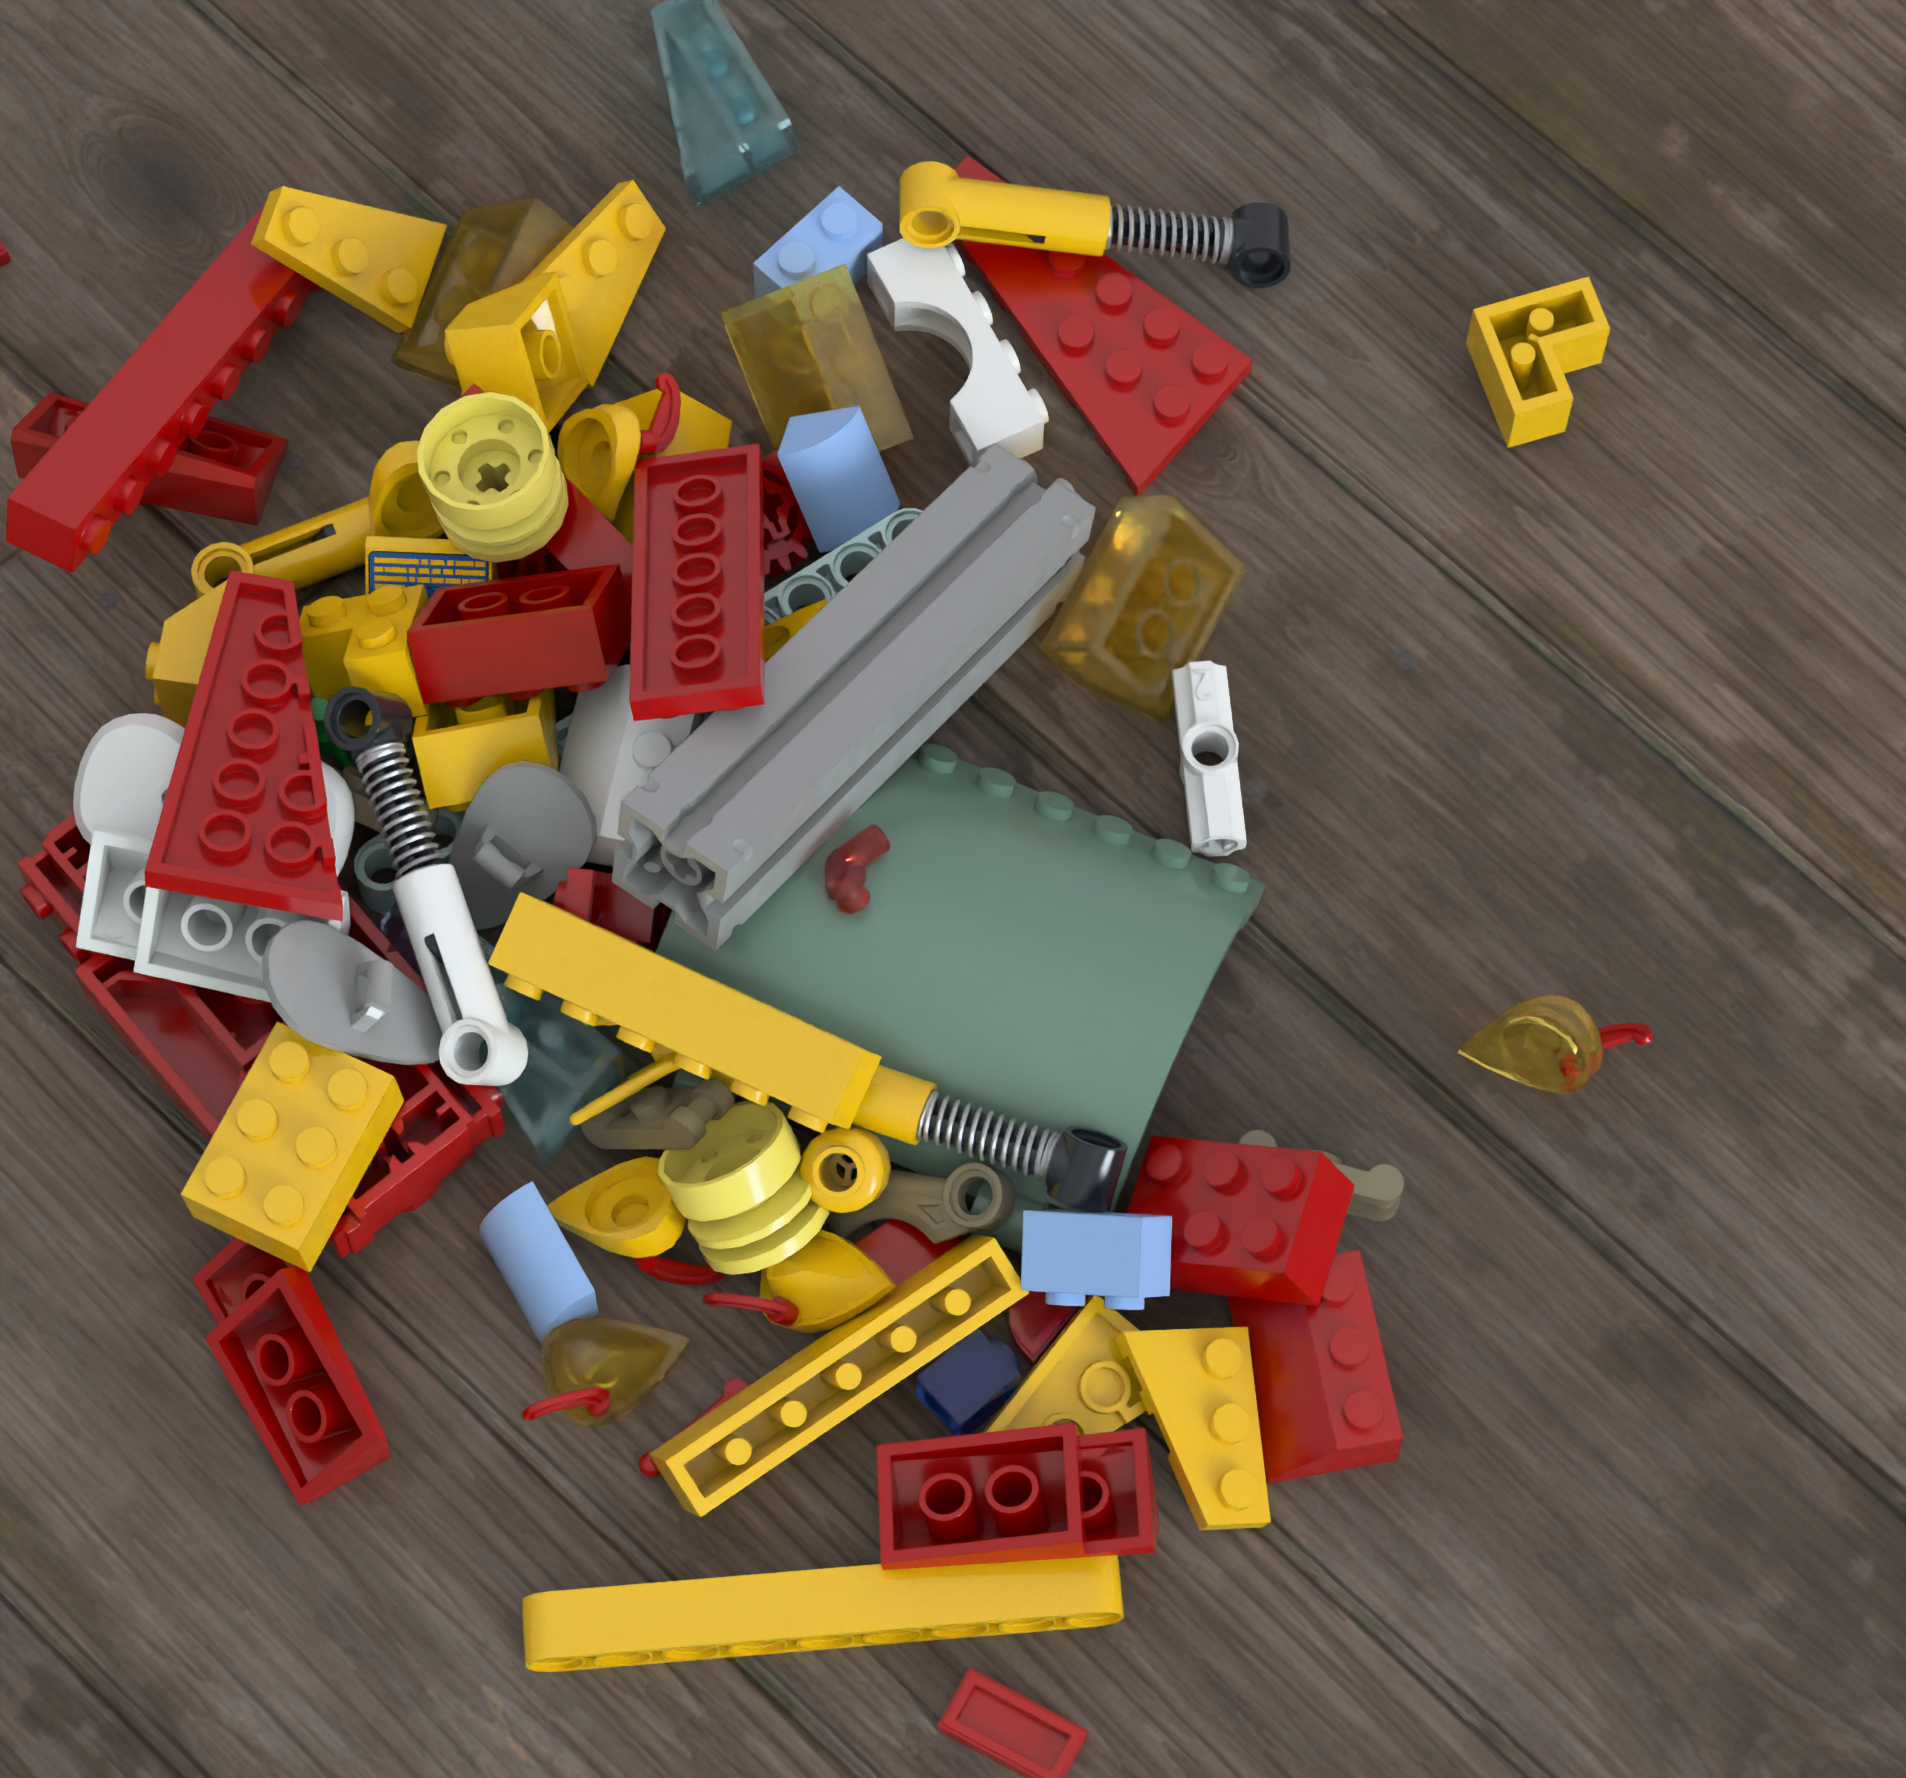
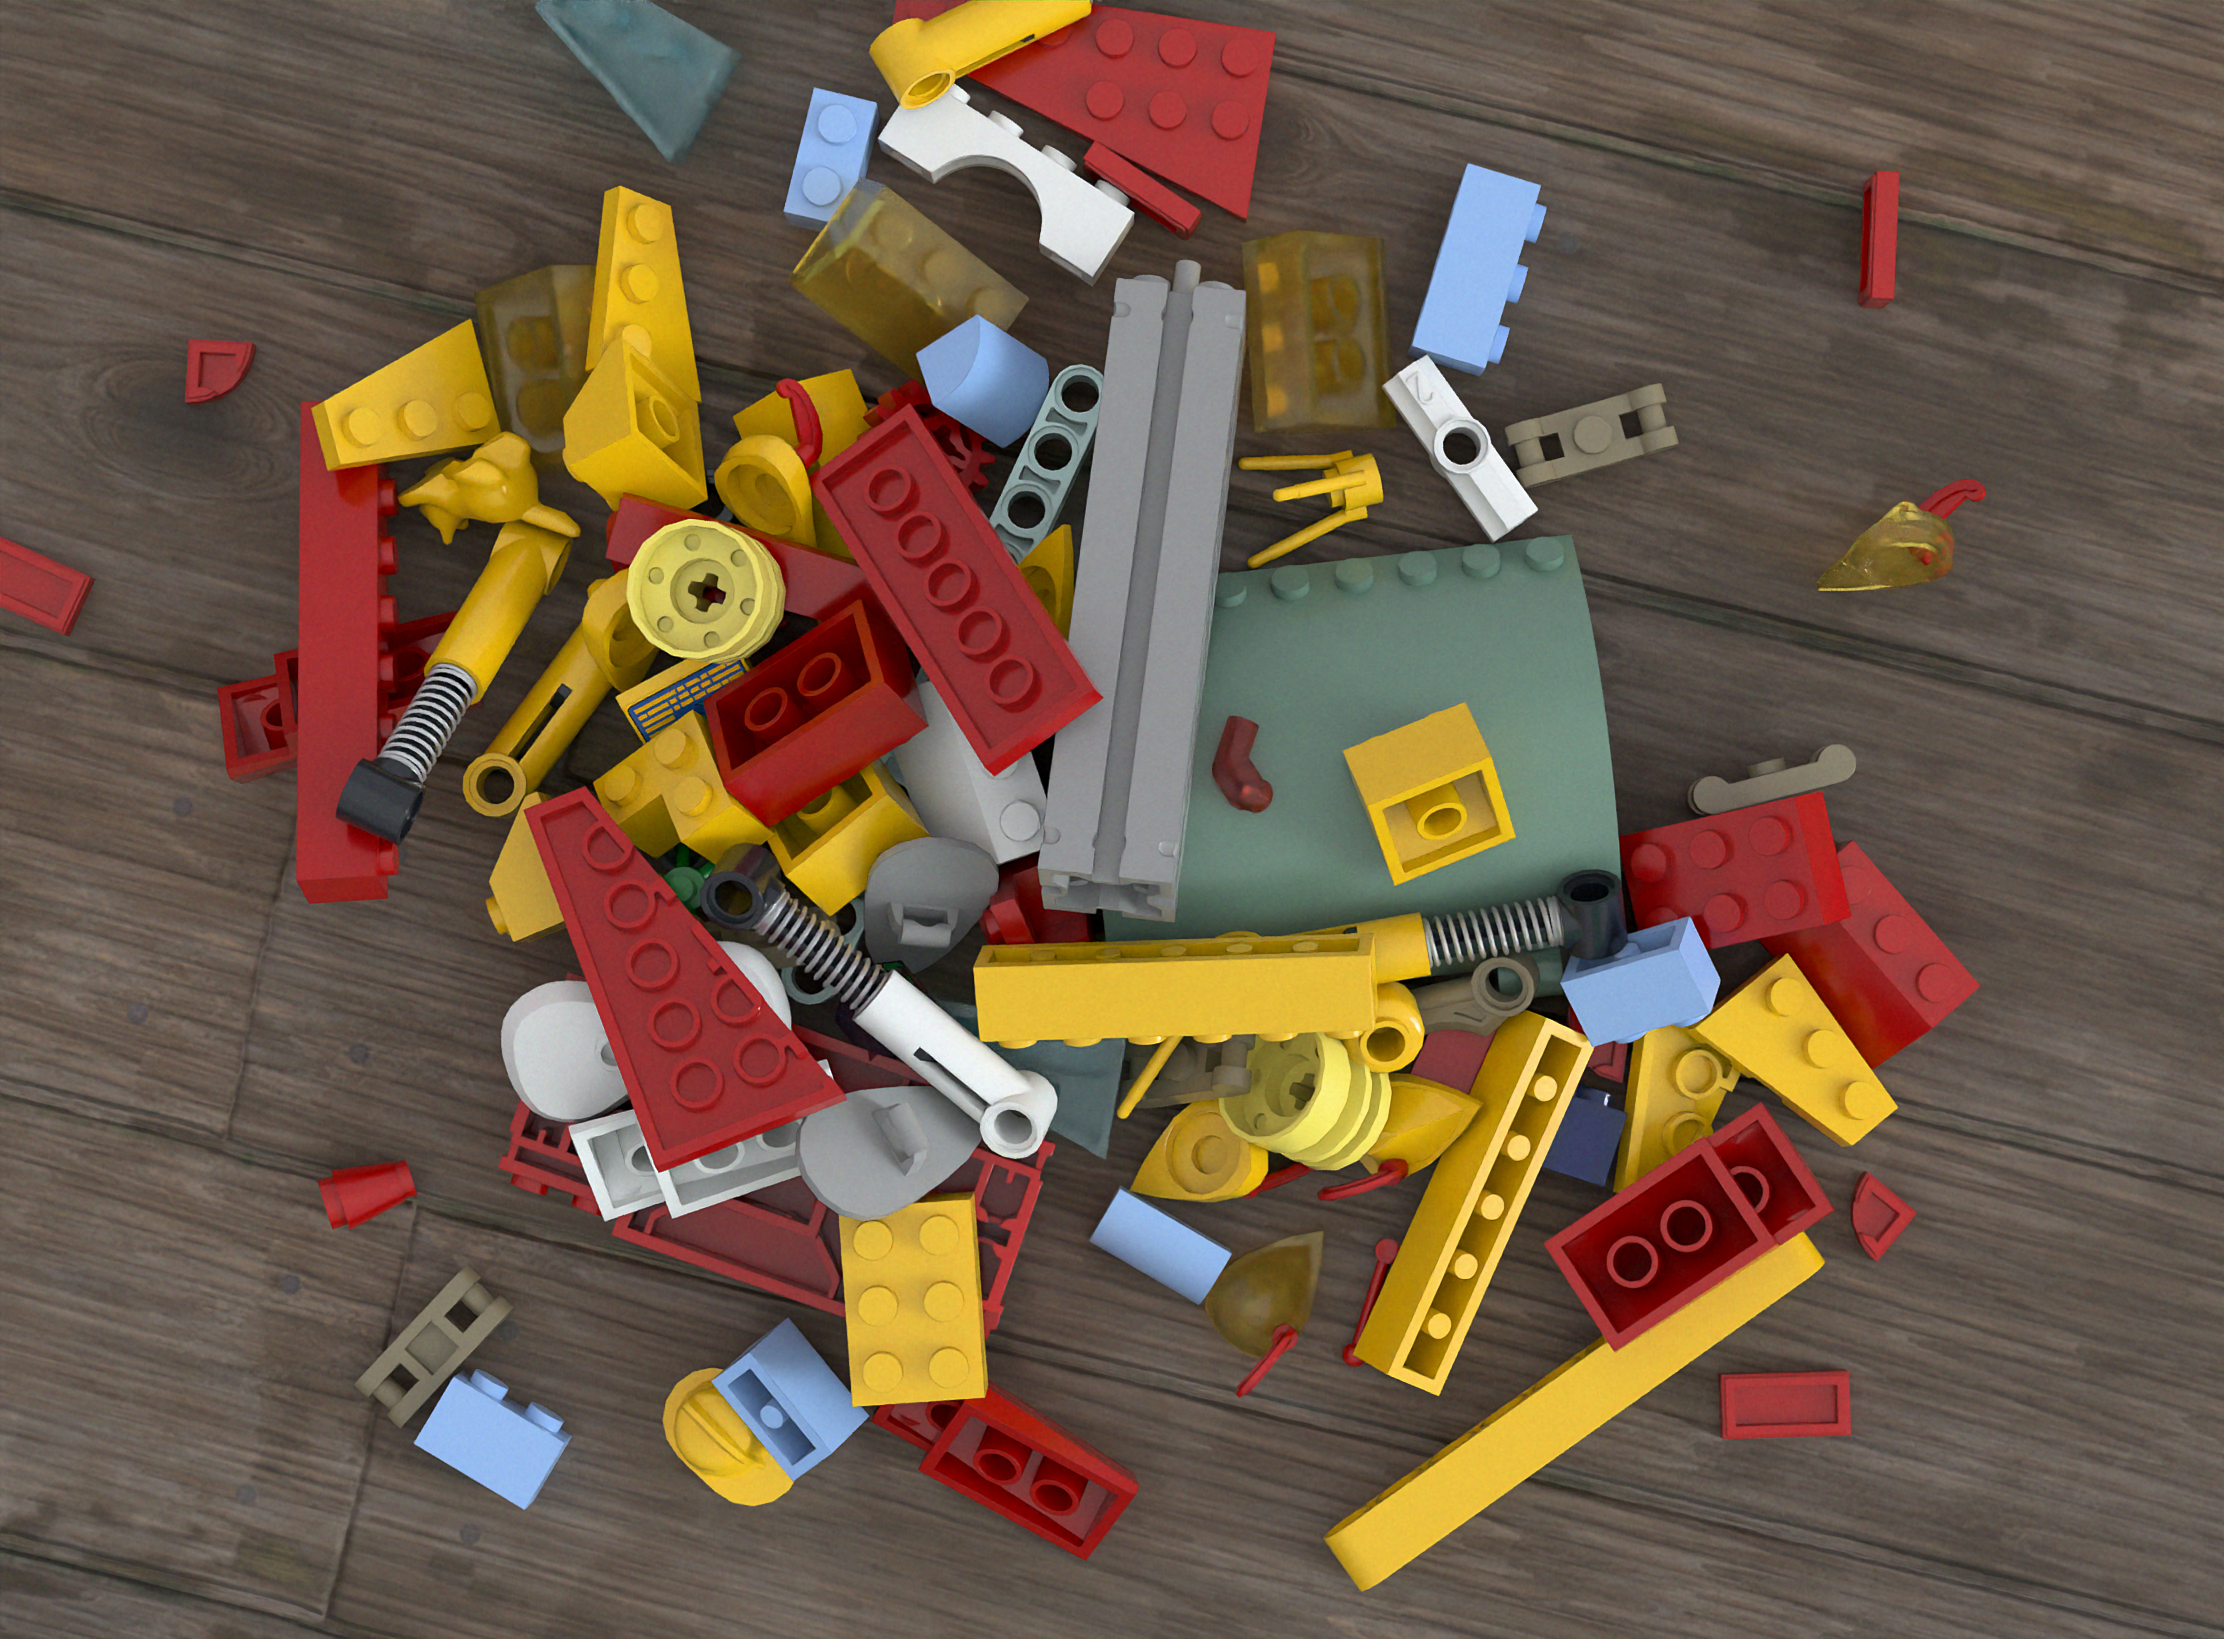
camera: 30 degrees left, 20 degrees up
(64, 1225) = (719, 1443): none -> yellow piece
(131, 472) = (389, 790): none -> piece
(134, 1204) = (790, 1399): none -> light blue brick
(217, 156) = (216, 368): none -> red tile
(372, 341) = (489, 487): none -> yellow animal
(1001, 976) = (1430, 793): none -> yellow slope
(1065, 421) = (1142, 190): none -> red tile
(1096, 735) = (1347, 483): none -> yellow plant
(1197, 1612) = (1877, 1215): none -> red tile
(1309, 627) = (1477, 270): none -> light blue brick
(1330, 816) = (1591, 436): none -> dark tan plate
(1675, 788) = (1878, 239): none -> red tile

